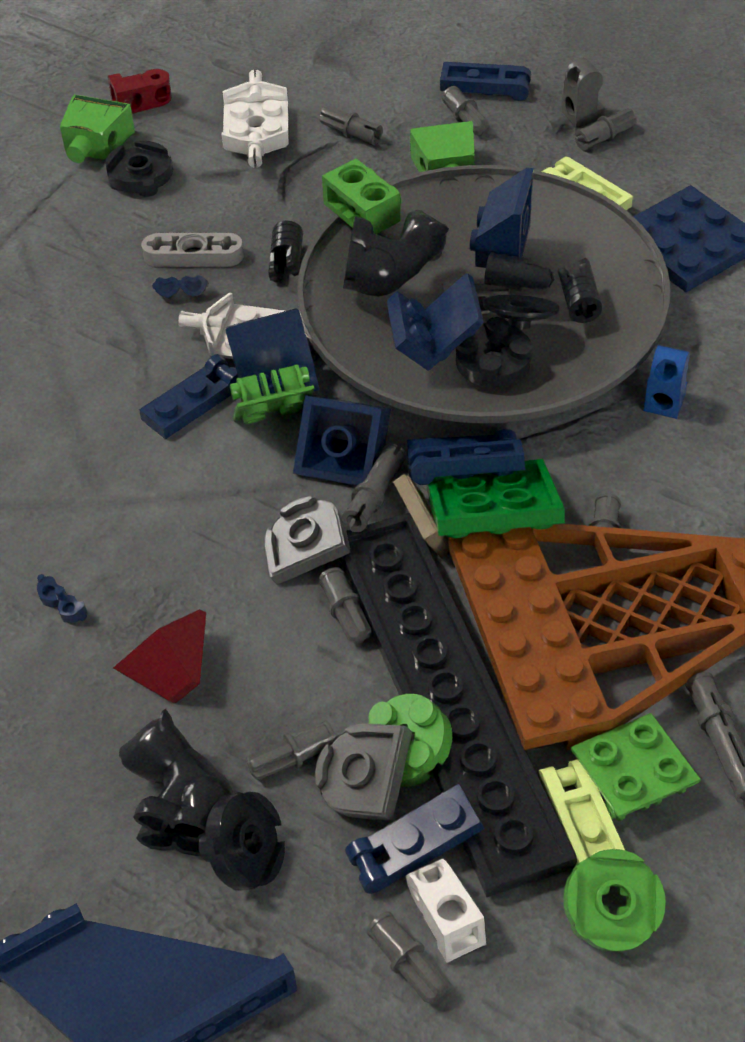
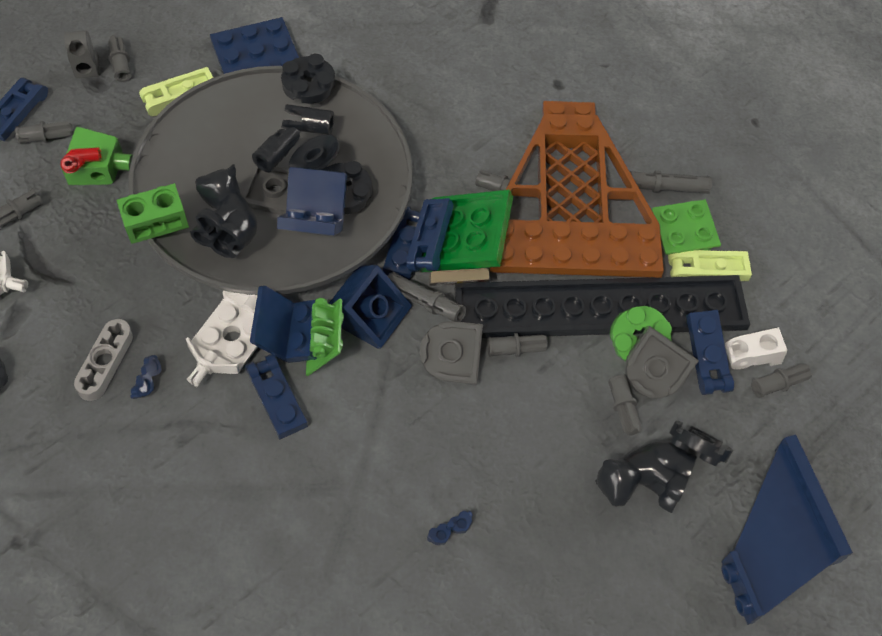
camera: 80 degrees left, 10 degrees up
(169, 658) = (530, 461): dark red slope -> none
(285, 249) = (145, 291): black hinge -> none
(422, 131) = (78, 157): none -> red arm
(504, 219) = (227, 133): dark blue slope -> none
(634, 880) = (769, 266): bright green plate -> none
(660, 270) = (308, 67): none -> black plate
(667, 377) = (402, 105): blue leg -> none

